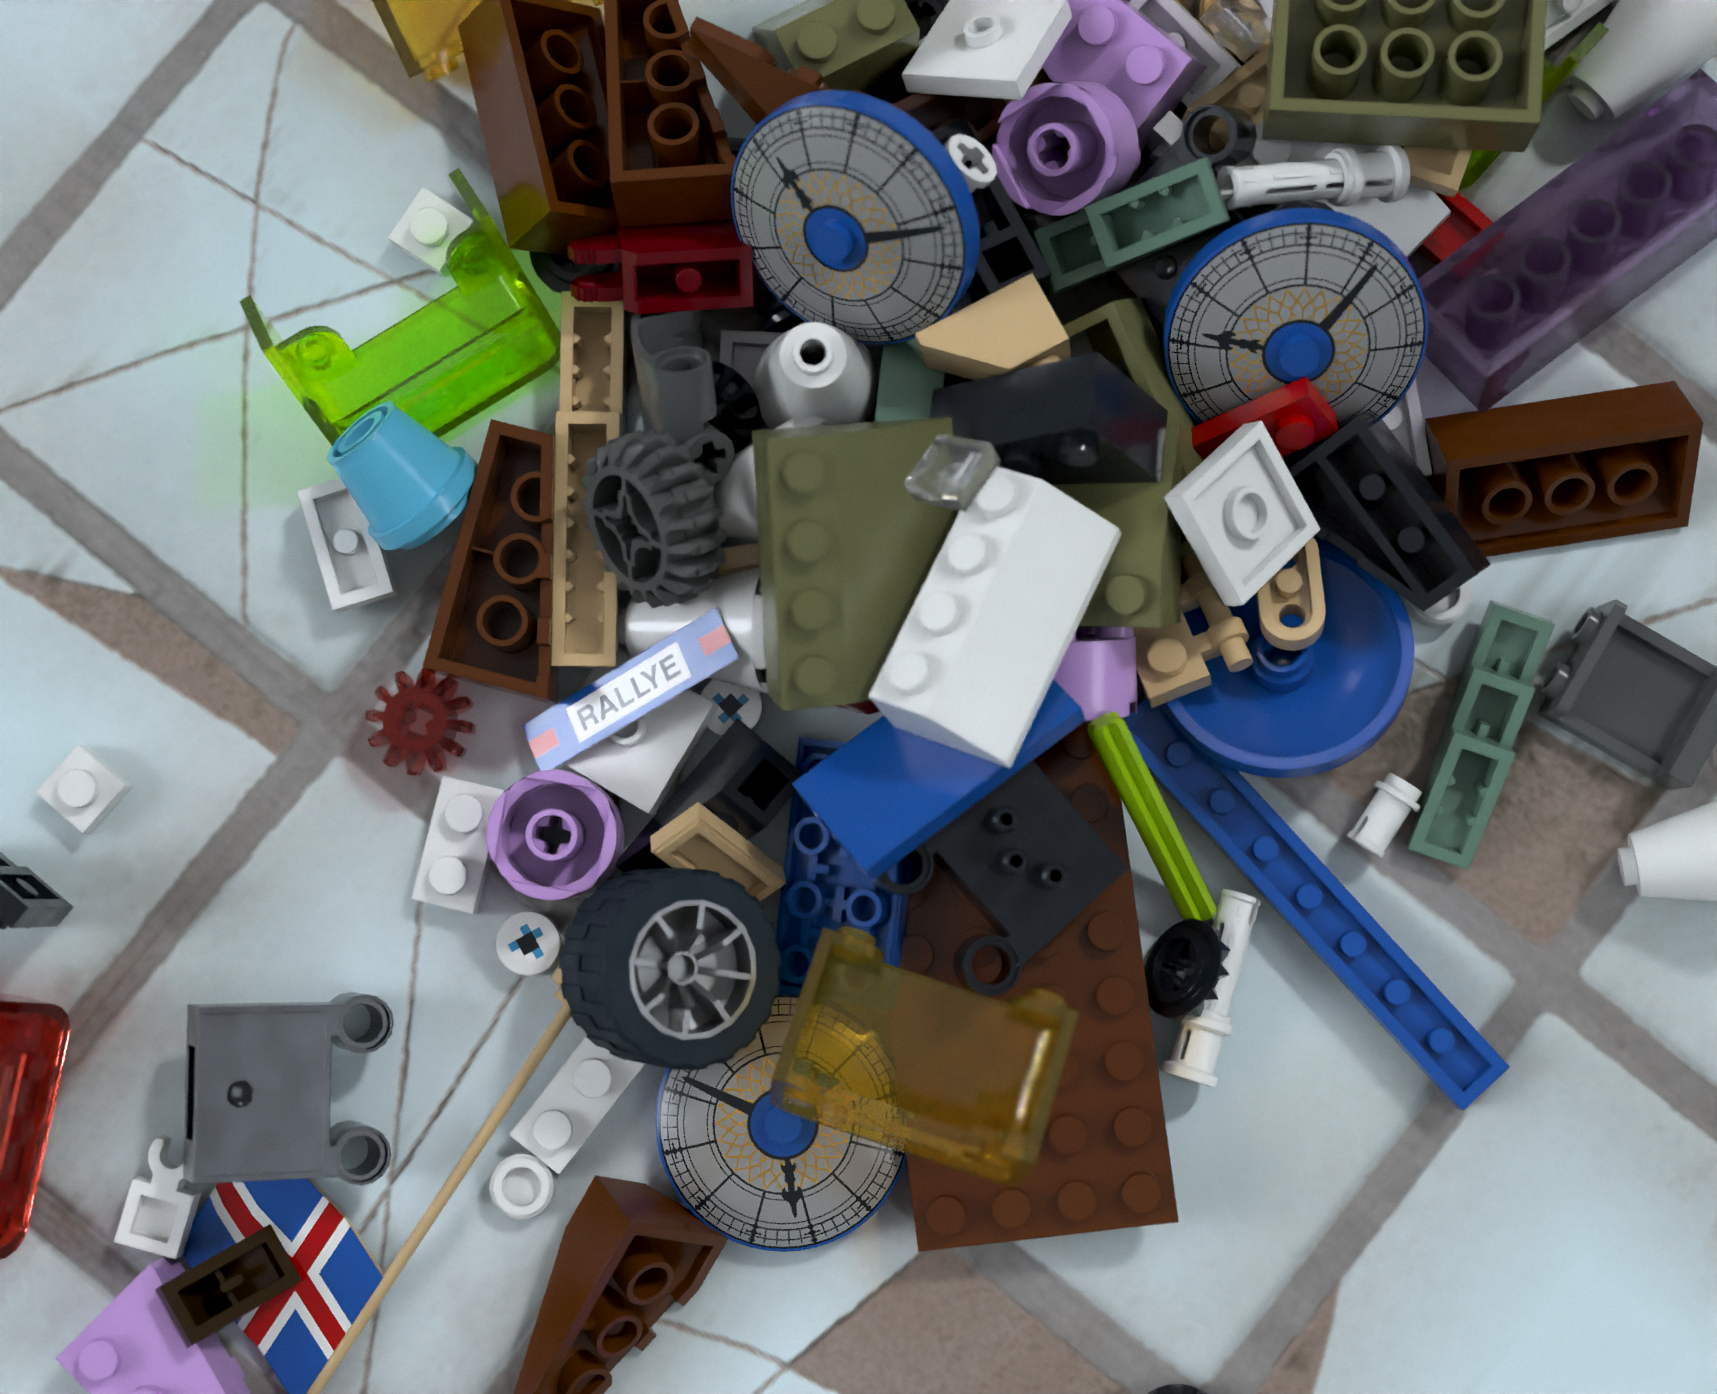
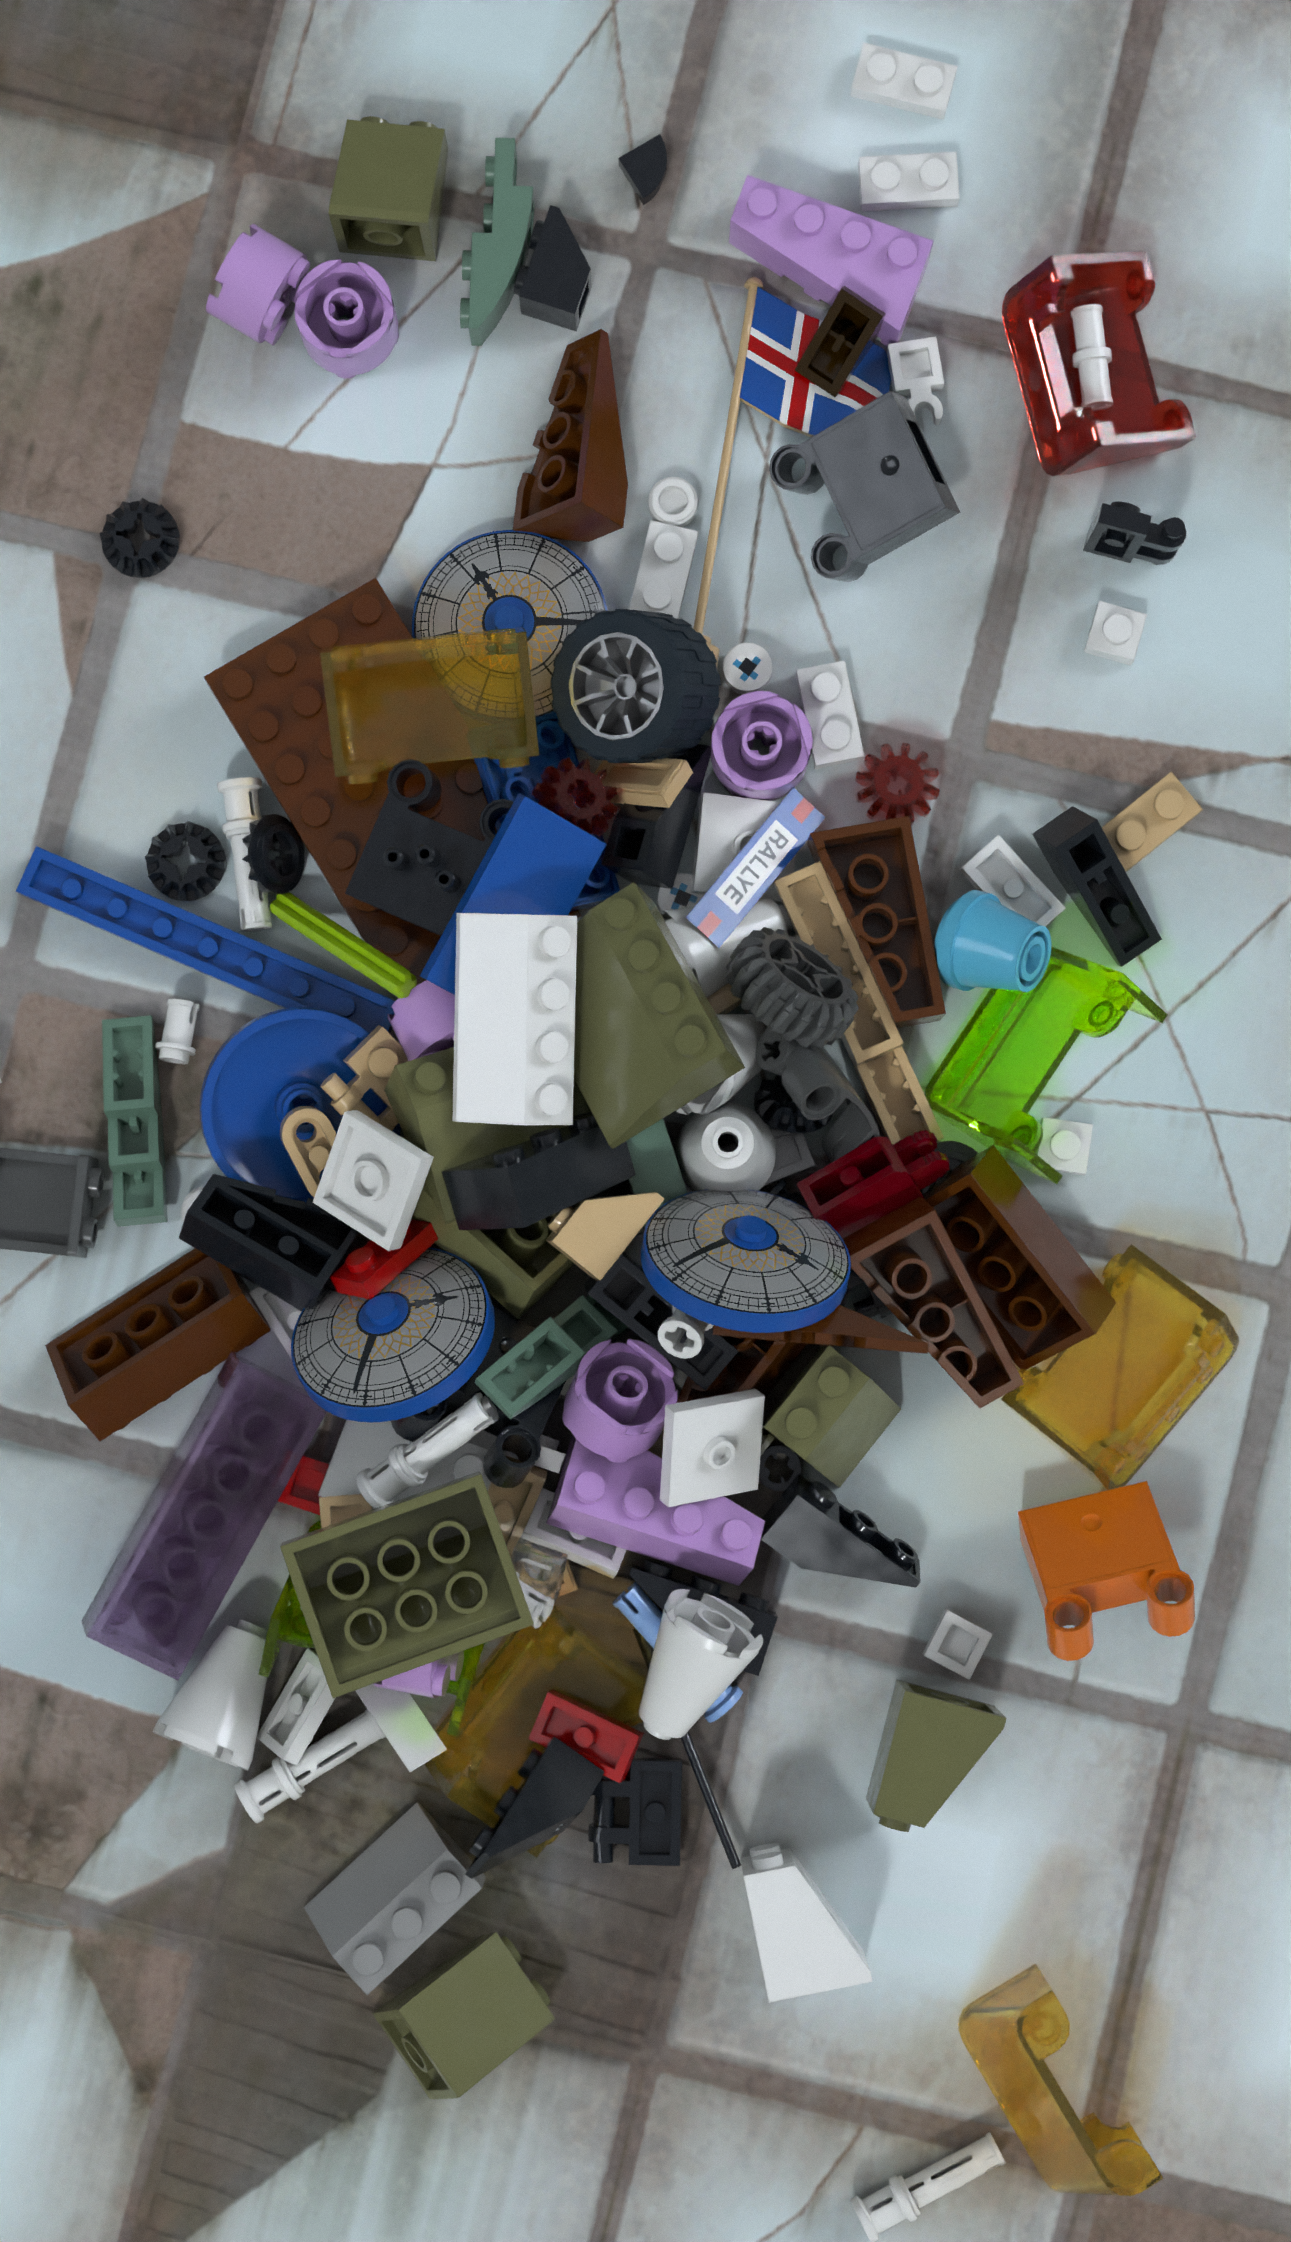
camera: 155 degrees right, 0 degrees up
(157, 552) = (1150, 820): none -> tan plate
(247, 506) = (1097, 883): none -> black slope
(784, 867) = (588, 789): none -> clear red gear
(952, 472) = (590, 1100): clear plate -> none
(1262, 1025) = (200, 878): none -> black gear

